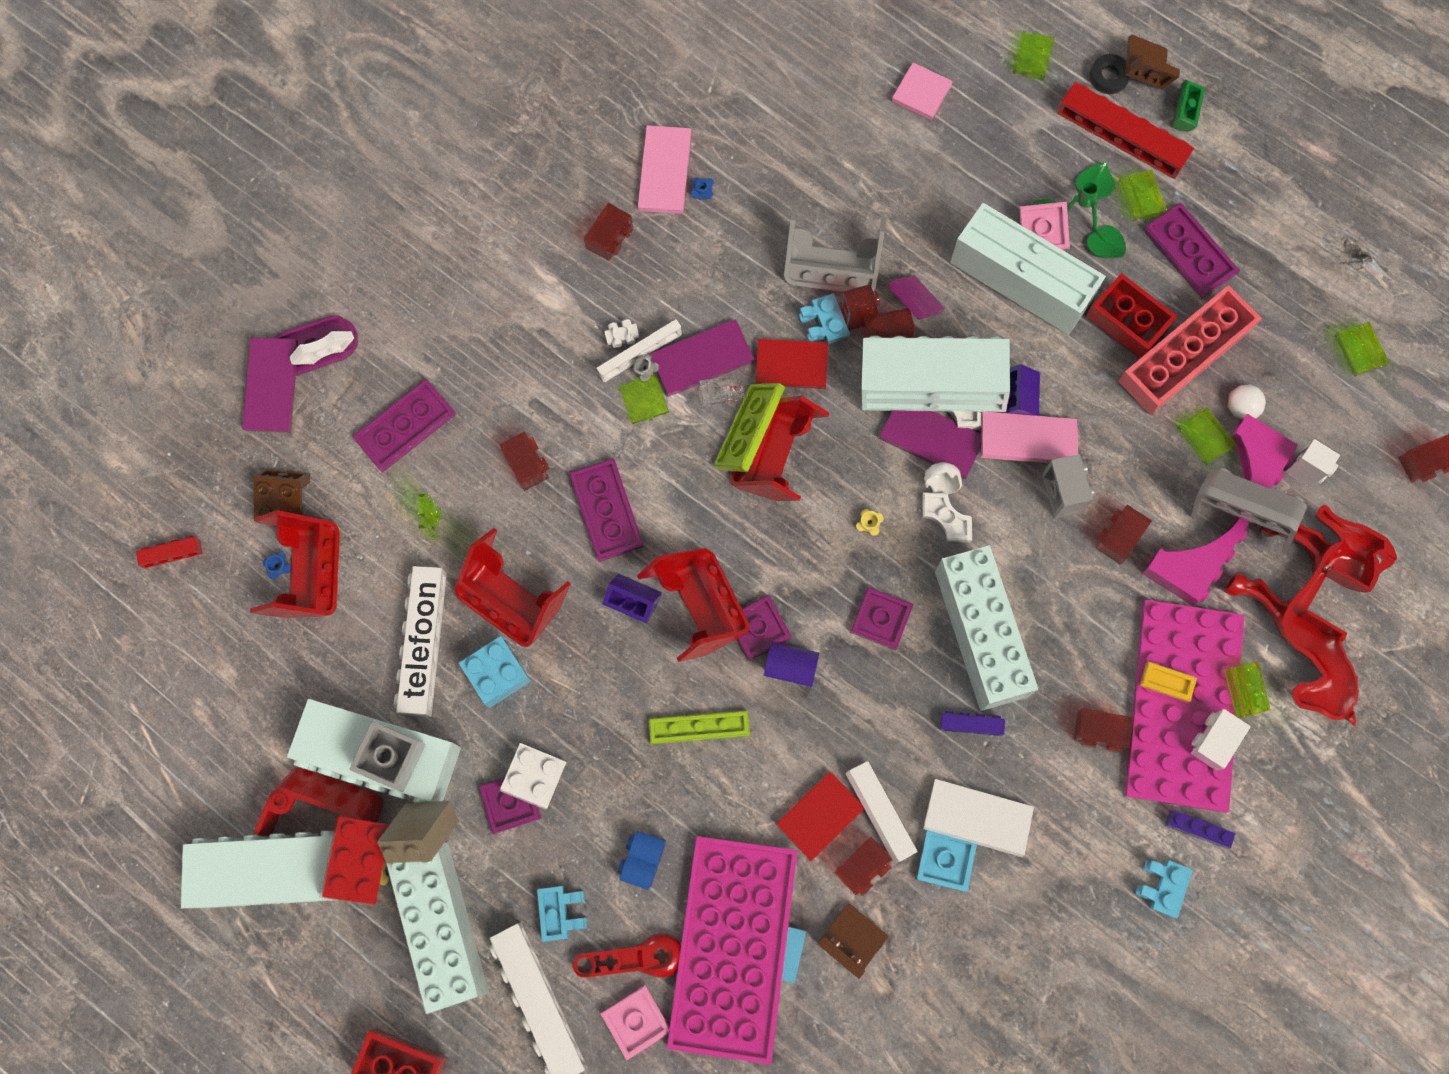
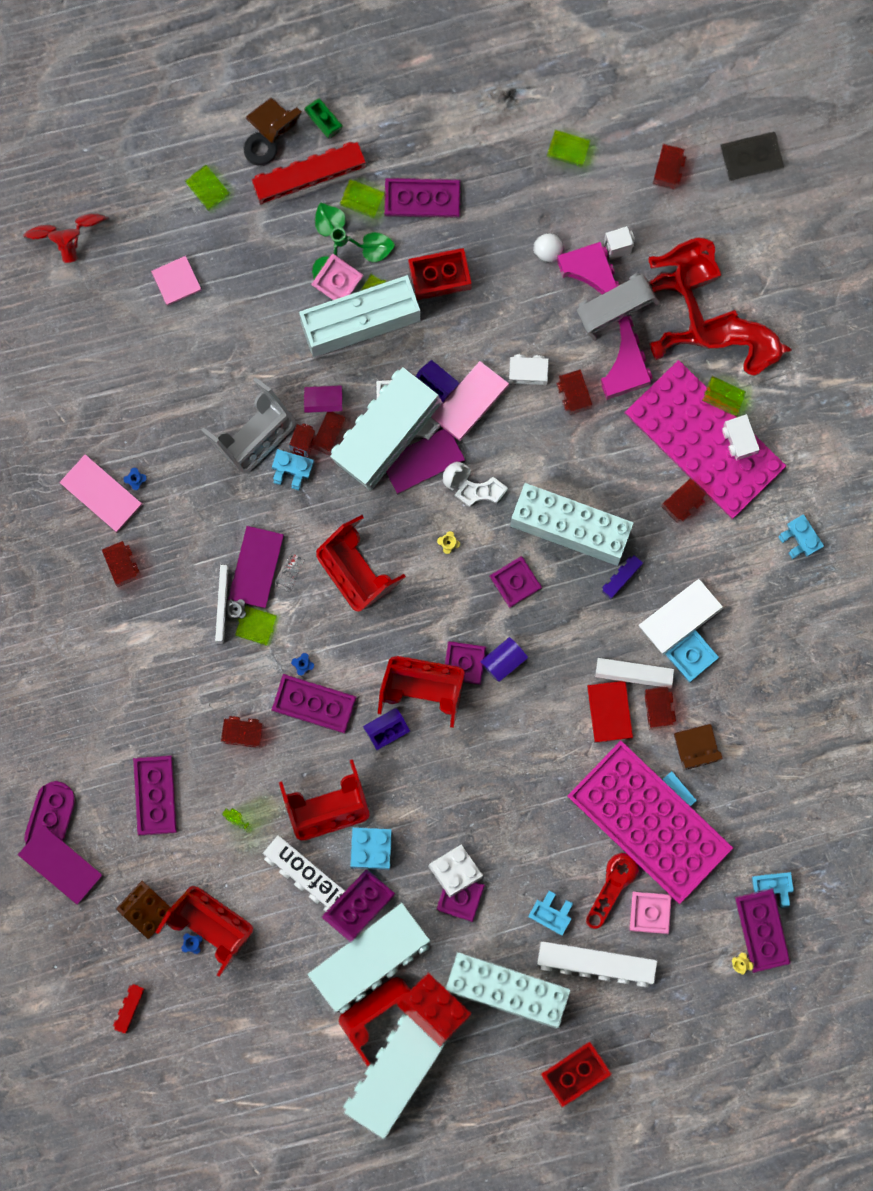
camera: 60 degrees left, 5 degrees up
(332, 343) = (65, 803): white tile -> none
(387, 757) = (385, 945): light grey brick -> none
(418, 832) = (445, 958): dark tan brick -> none
(421, 700) = (358, 905): none -> magenta tile
(625, 334) = (198, 611): white piece -> none
(639, 476) = (302, 669): none -> blue plate
(642, 860) = (557, 840): blue brick -> none
(699, 727) = (500, 746): lime tile -> none
(749, 427) = (330, 572): lime tile -> none
(792, 363) = (304, 512): red tile -> none
(1068, 486) = (520, 402): light grey brick -> none
(1108, 472) = (528, 370): none -> white brick
(1168, 682) = (684, 439): yellow tile -> none
(1189, 350) = (489, 256): coral brick -> none
(1200, 829) = (783, 490): dark purple piece -> none
(1206, 436) = (551, 289): clear neon green plate -> none

